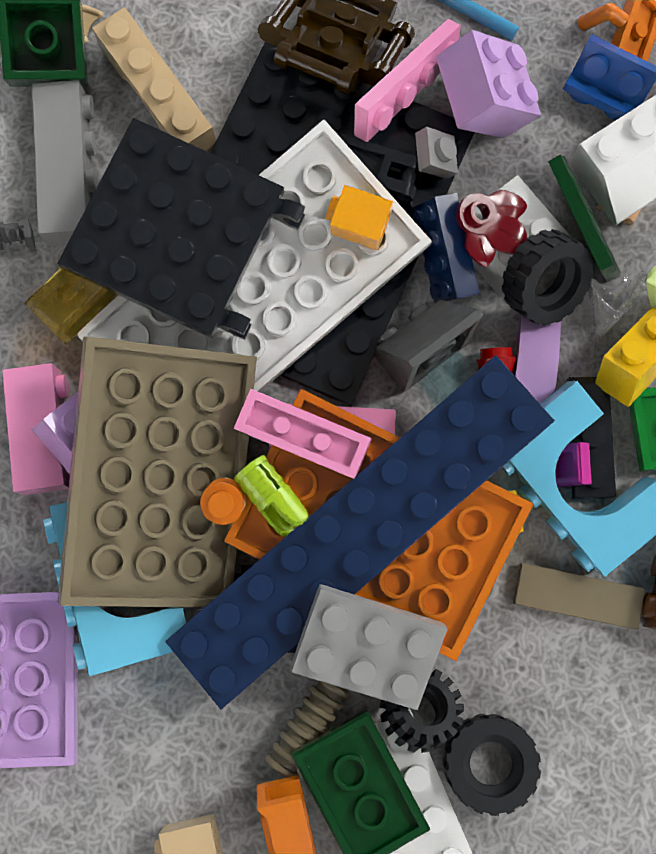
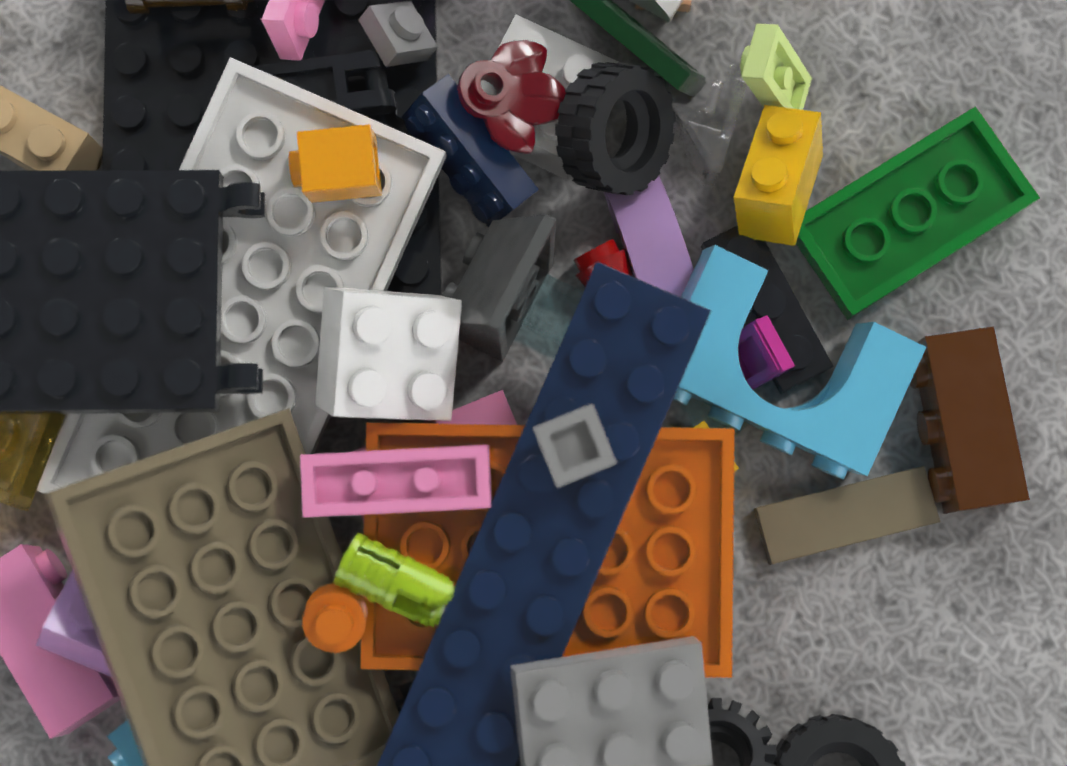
camera: 25 degrees left, 0 degrees up
(334, 352) = (387, 354): none -> white brick
(427, 464) = (574, 445): none -> light grey plate

